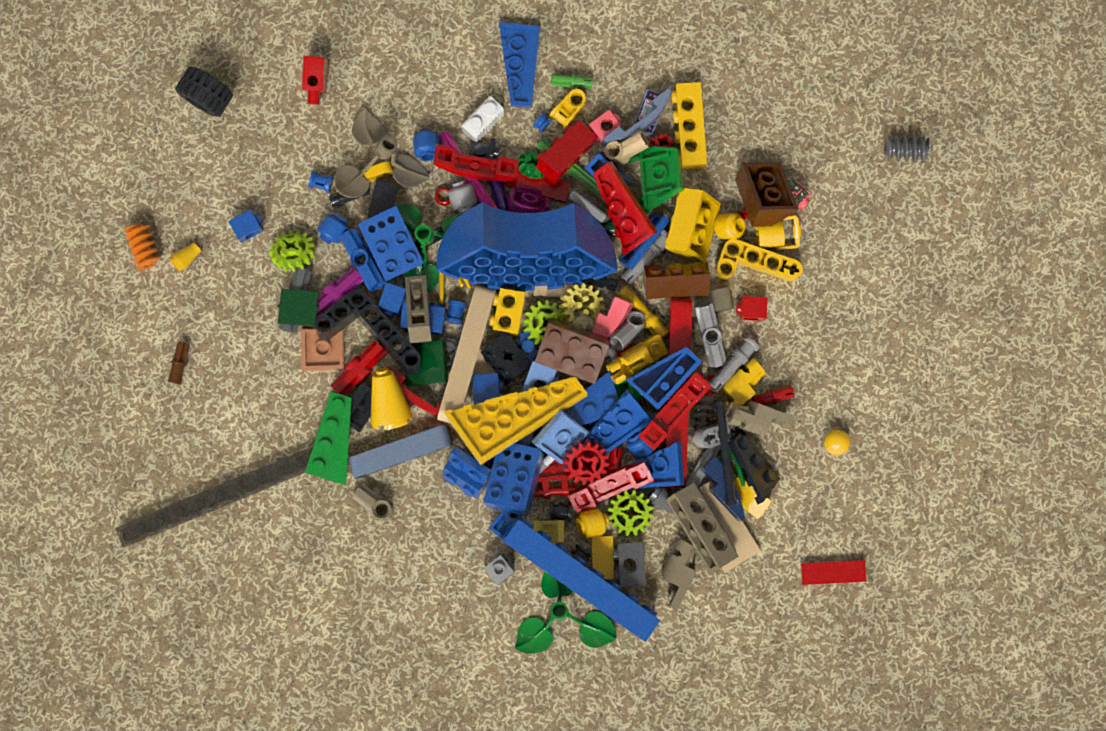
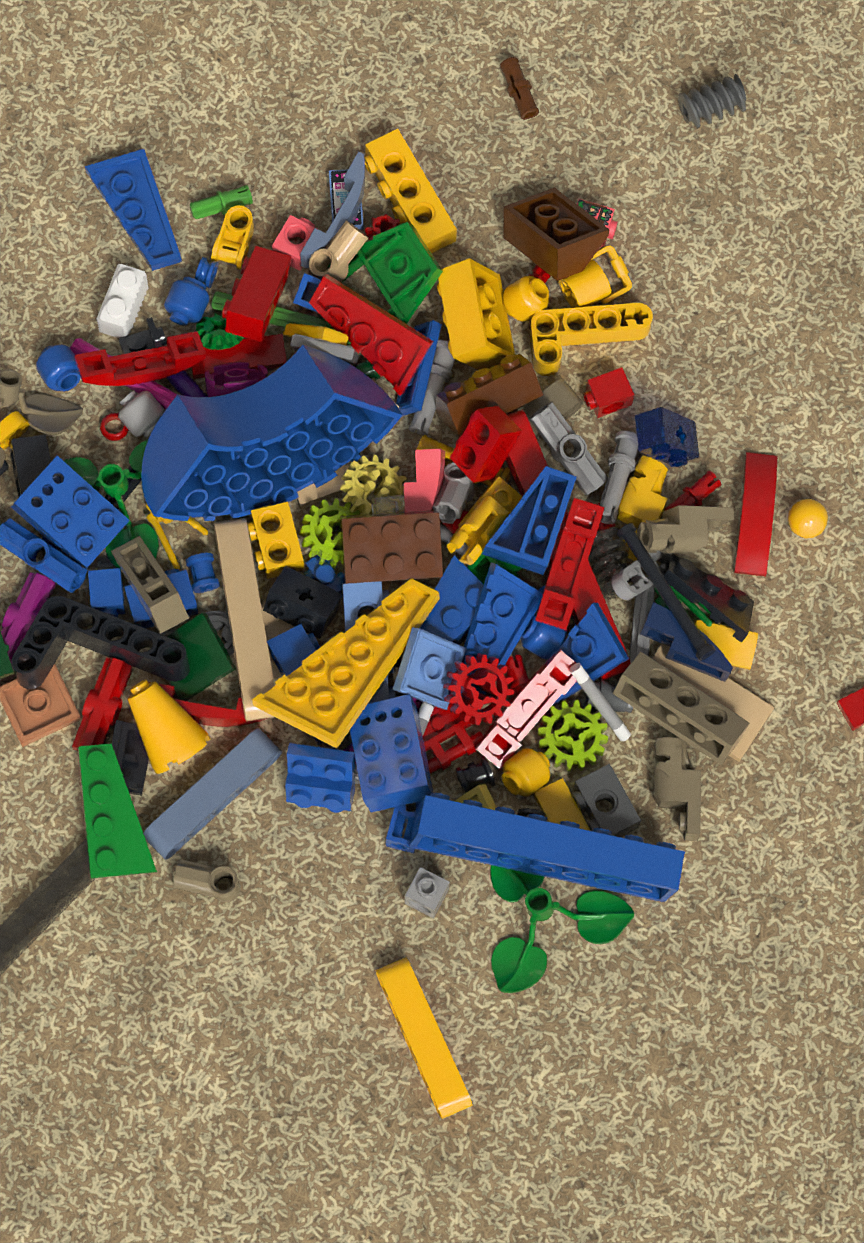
camera: 25 degrees left, 10 degrees down
(457, 655) = (424, 1038): none -> yellow beam
(522, 136) = (186, 301): none -> blue head
(589, 195) = (317, 332): none -> yellow tile
(611, 283) = (387, 446): black axle -> none
(655, 502) = (600, 701): none -> light grey bar
(658, 312) = (485, 443): none -> red brick
(773, 354) = (667, 436): none -> clear blue brick
(789, 86) = (519, 88): none -> reddish brown pin
(807, 424) = (756, 514): none -> red slope

